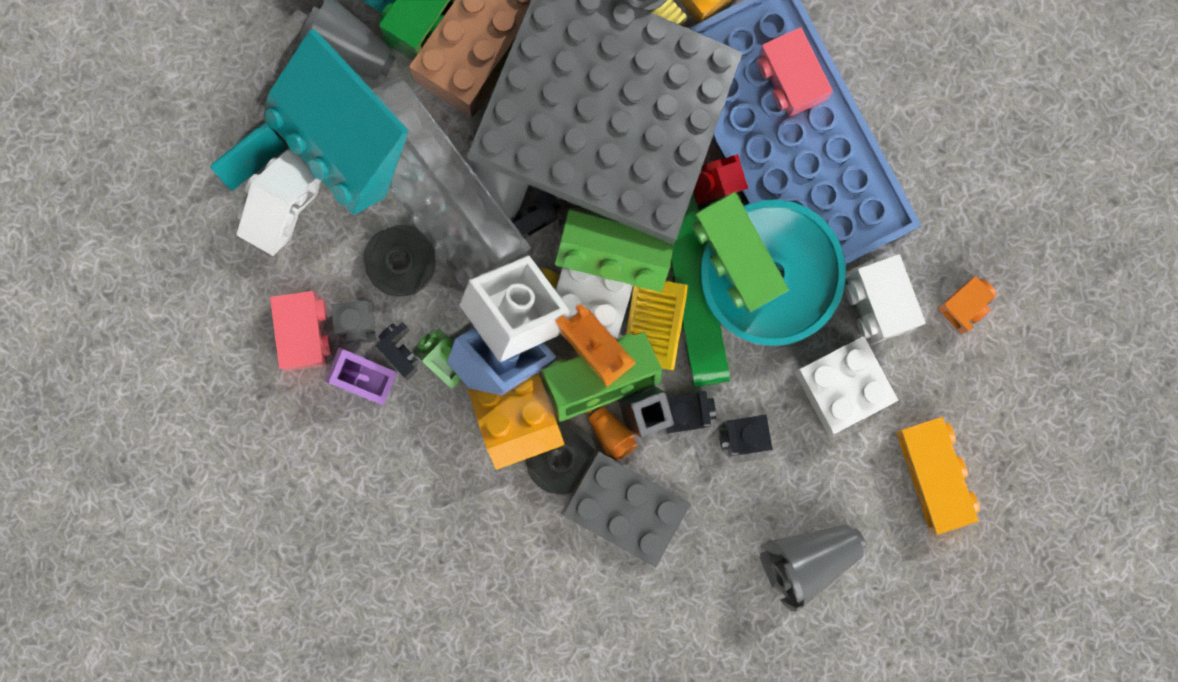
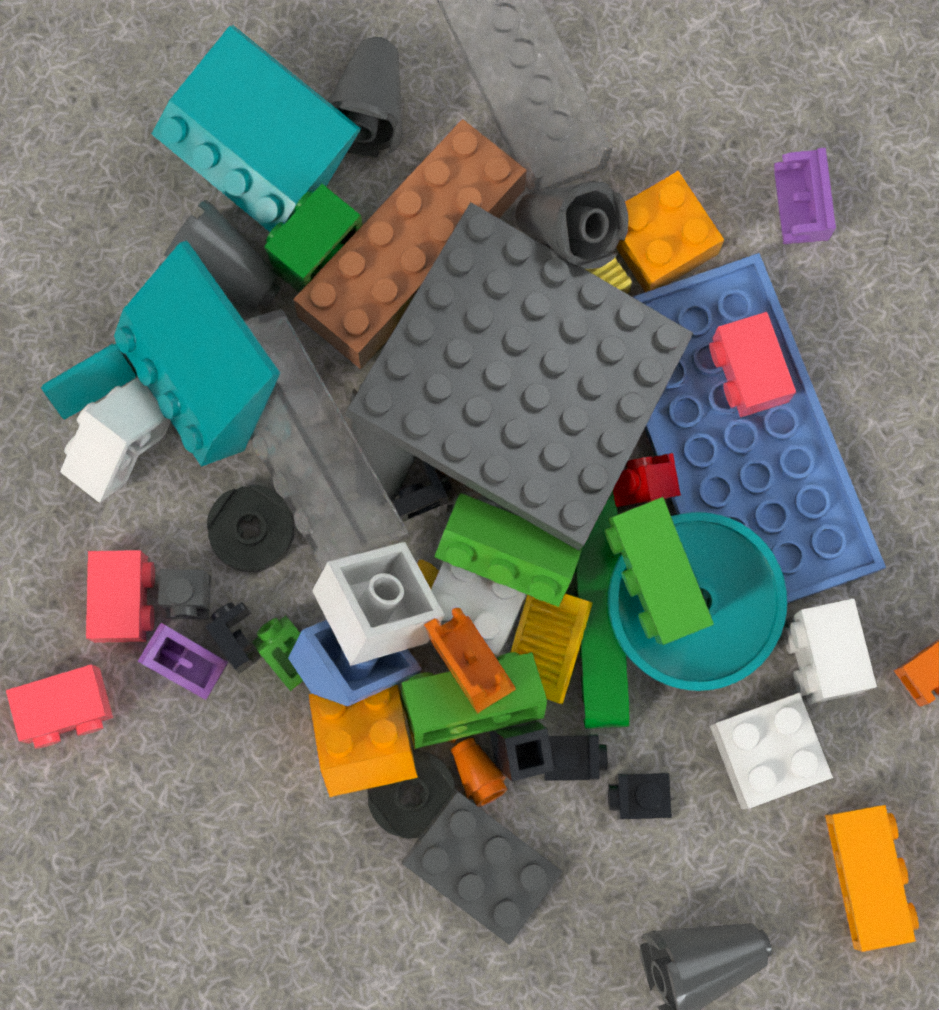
camera: 10 degrees right, 5 degrees down
(265, 425) = (59, 706): none -> coral brick

